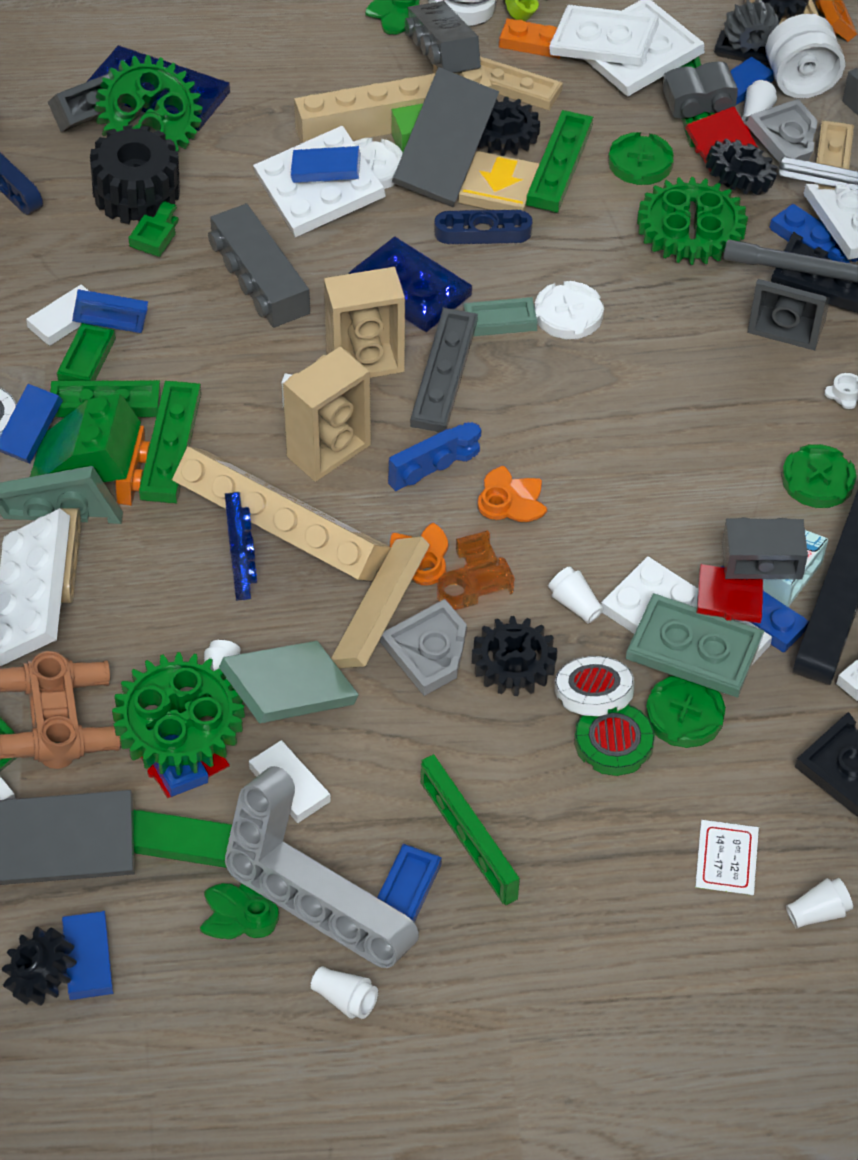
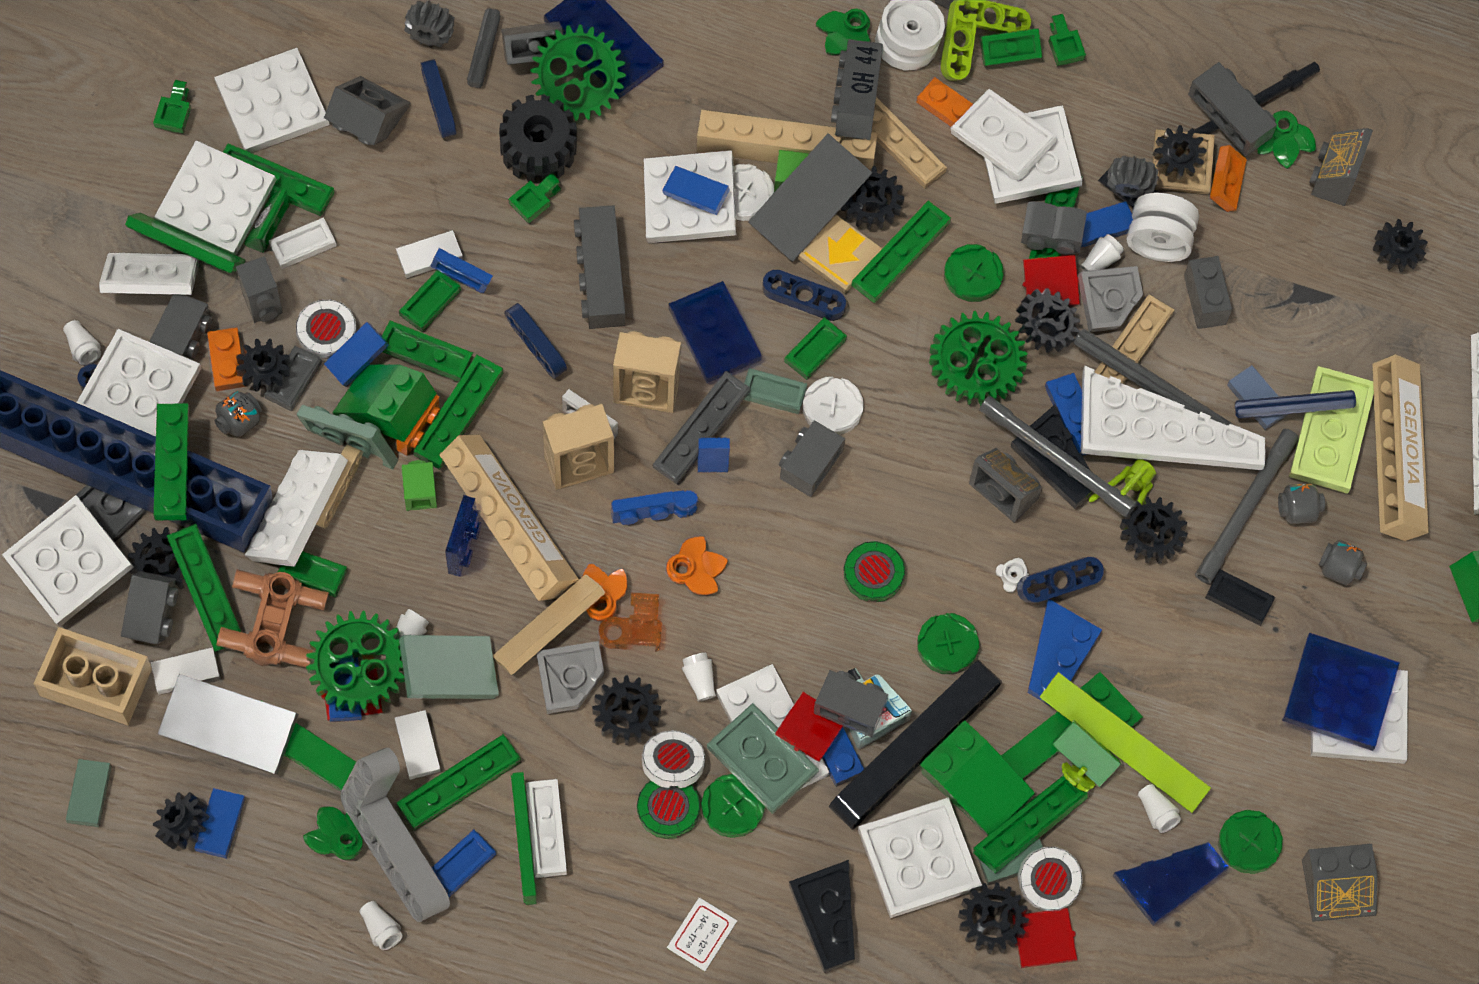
camera: 20 degrees right, 15 degrees up
(35, 128) = (483, 48): none -> dark grey axle
(85, 646) = (317, 573): none -> green tile
(162, 522) = (419, 485): none -> bright green brick
(238, 357) = (535, 340): none -> dark blue beam
(359, 801) = (458, 782): none -> green tile
(475, 380) = (713, 454): none -> blue tile
(492, 808) = (546, 828): none -> white plate
(521, 268) = (815, 348): none -> green tile
(576, 356) = (811, 458): none -> dark grey brick
(701, 437) = (874, 571): none -> tile

